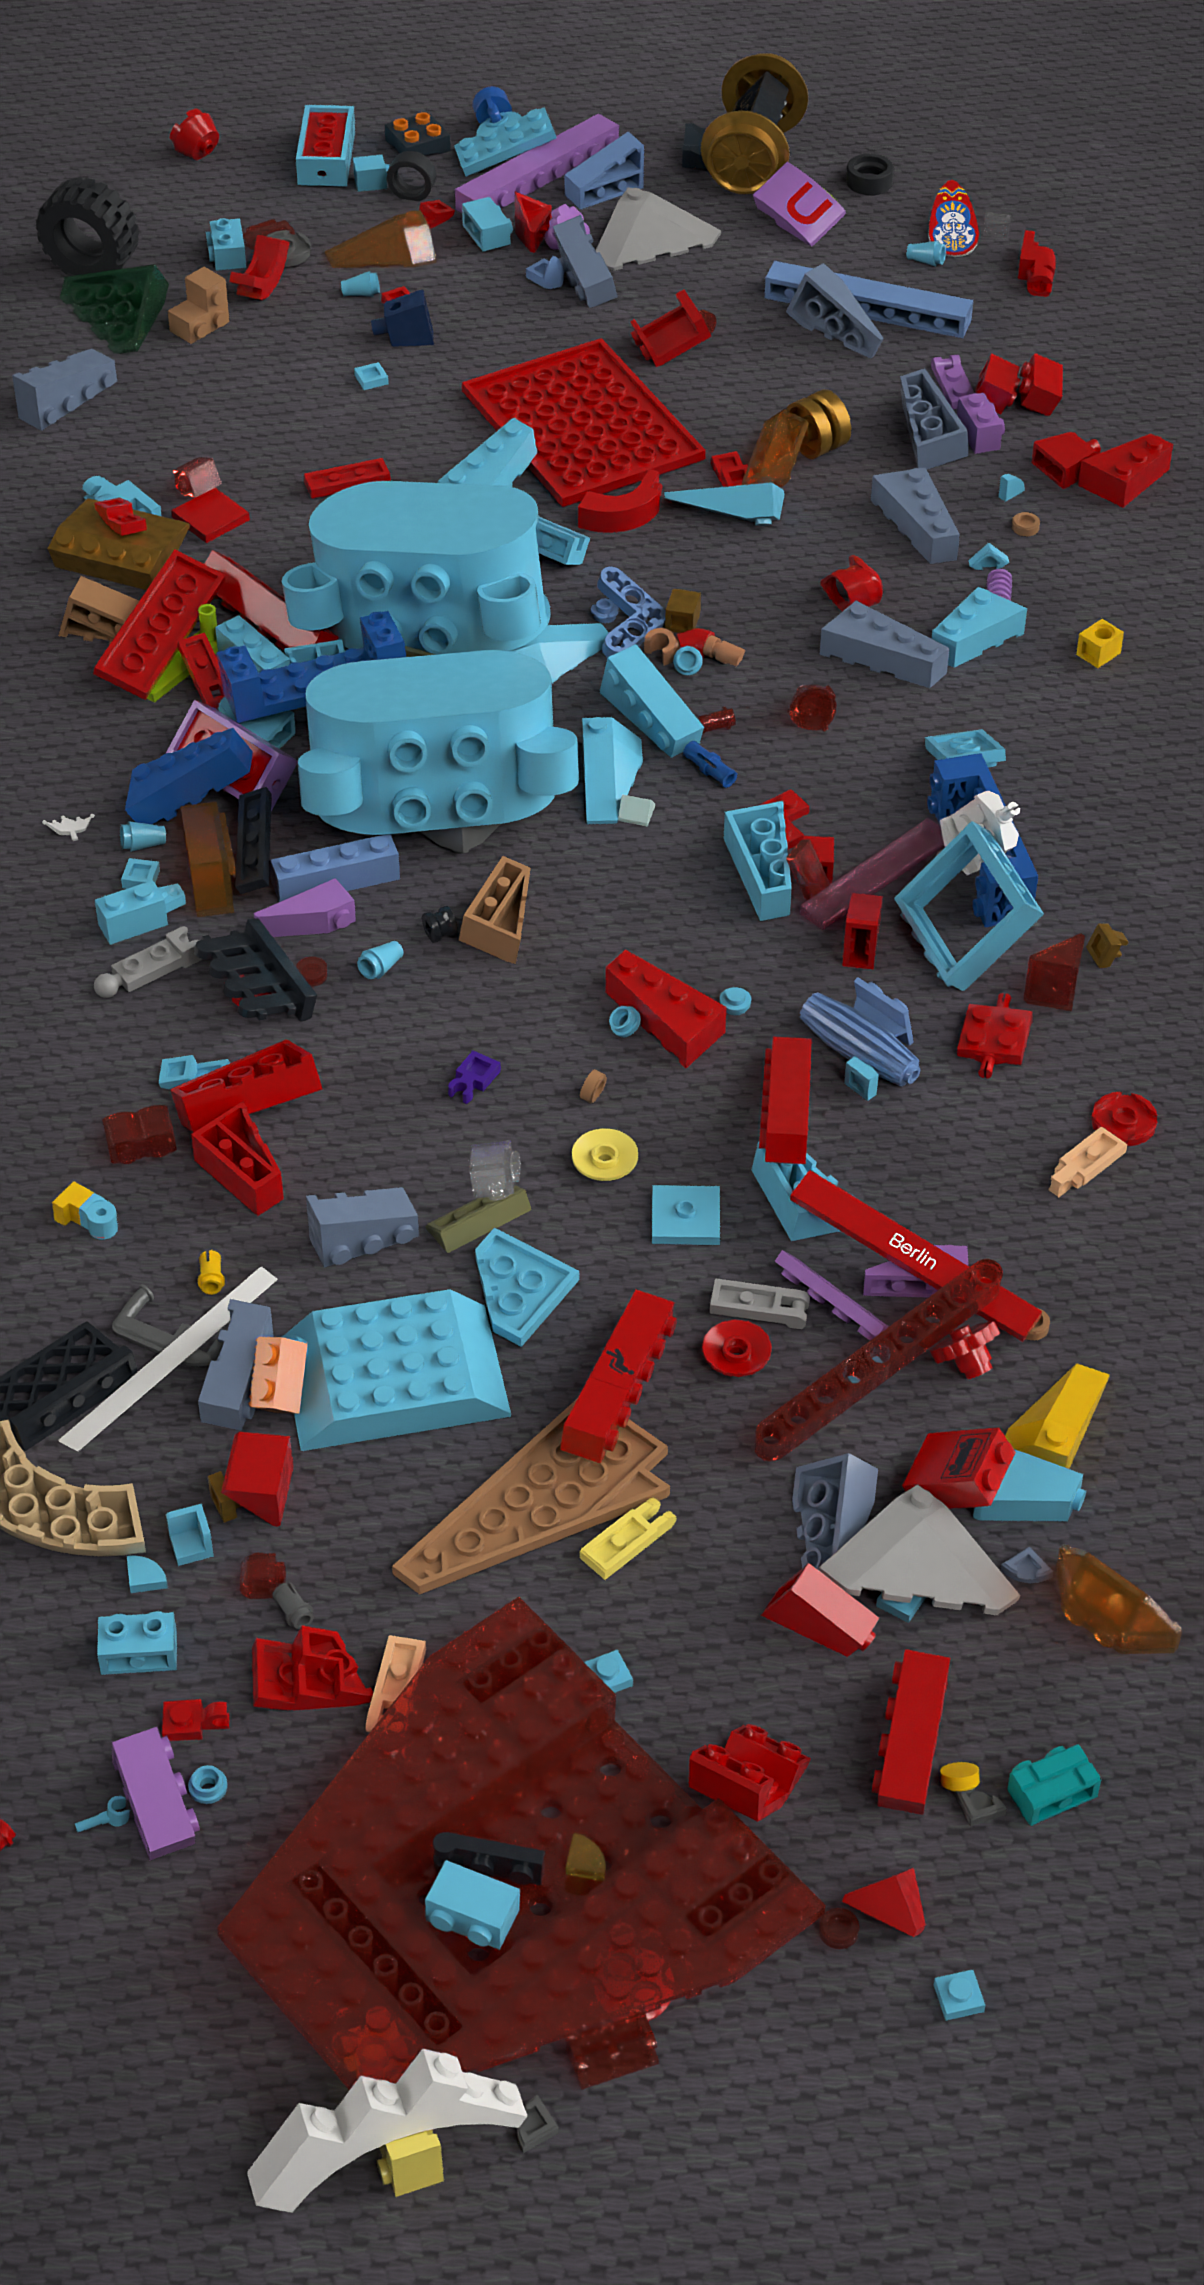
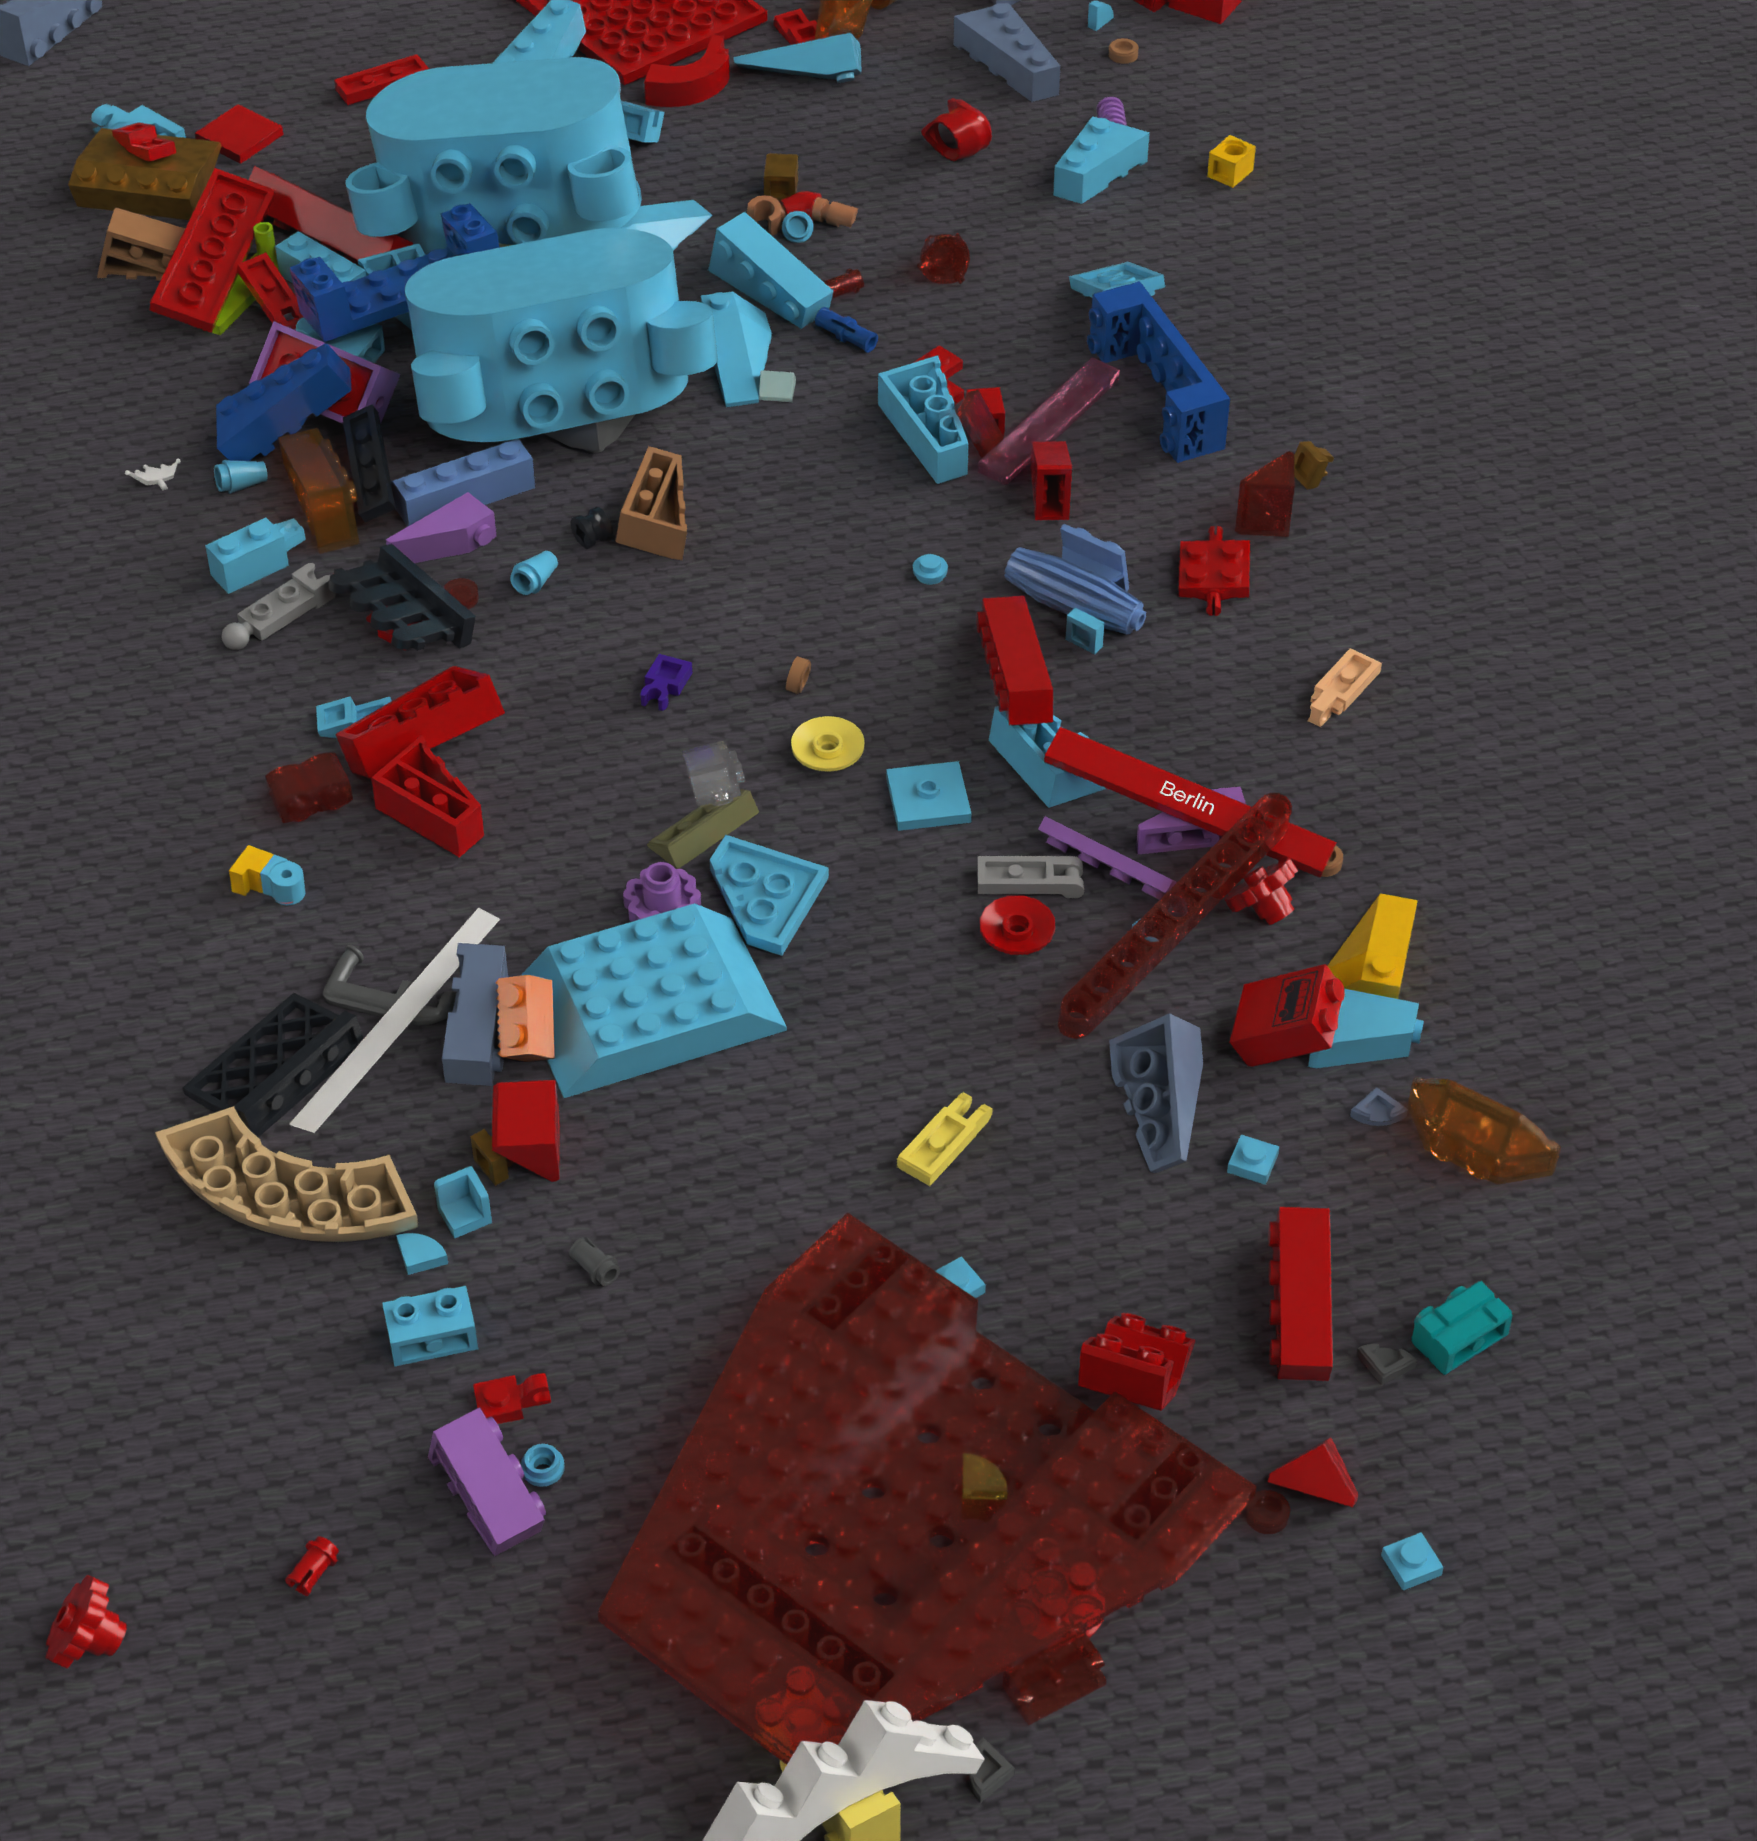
camera: 10 degrees left, 0 degrees up
(109, 1816) = (440, 1515): medium azure hand -> none
(139, 872) = (245, 512): medium azure plate -> none
(196, 477) = (216, 94): clear red brick -> none
(211, 1278) = (423, 928): yellow pin -> none
(261, 1575) = (552, 1234): clear red plate -> none
(312, 1678) = (632, 1334): red slope -> none
(360, 1224) = (576, 849): sand blue wedge -> none
(399, 1665) = (726, 1318): light nougat plate -> none
(425, 1273) = (659, 891): none -> medium lavender plant
(472, 1905) = (875, 1543): medium azure brick -> none
(490, 1858) = (876, 1493): black plate -> none
(535, 1502) = (859, 1090): medium nougat wing -> none
(604, 611) = (695, 186): medium blue plate -> none
(619, 1377) = (898, 971): red brick -> none
(624, 1021) = (810, 600): medium azure plate -> none
(637, 612) = (732, 183): medium blue beam -> none
(668, 1008) = (857, 582): red wedge -> none
(822, 1612) = (1174, 1184): red slope -> none
(884, 645) = (1005, 187): sand blue wedge -> none
(920, 1552) = (1266, 1107): light grey slope -> none
(937, 875) = (1124, 407): medium azure window -> none
(960, 1776) = (1360, 1334): yellow tile -> none
(985, 811) = (1143, 373): white plate -> none
(988, 557) = (1093, 88): medium azure tile -> none
(1128, 1127) = (1381, 640): red tile -> none

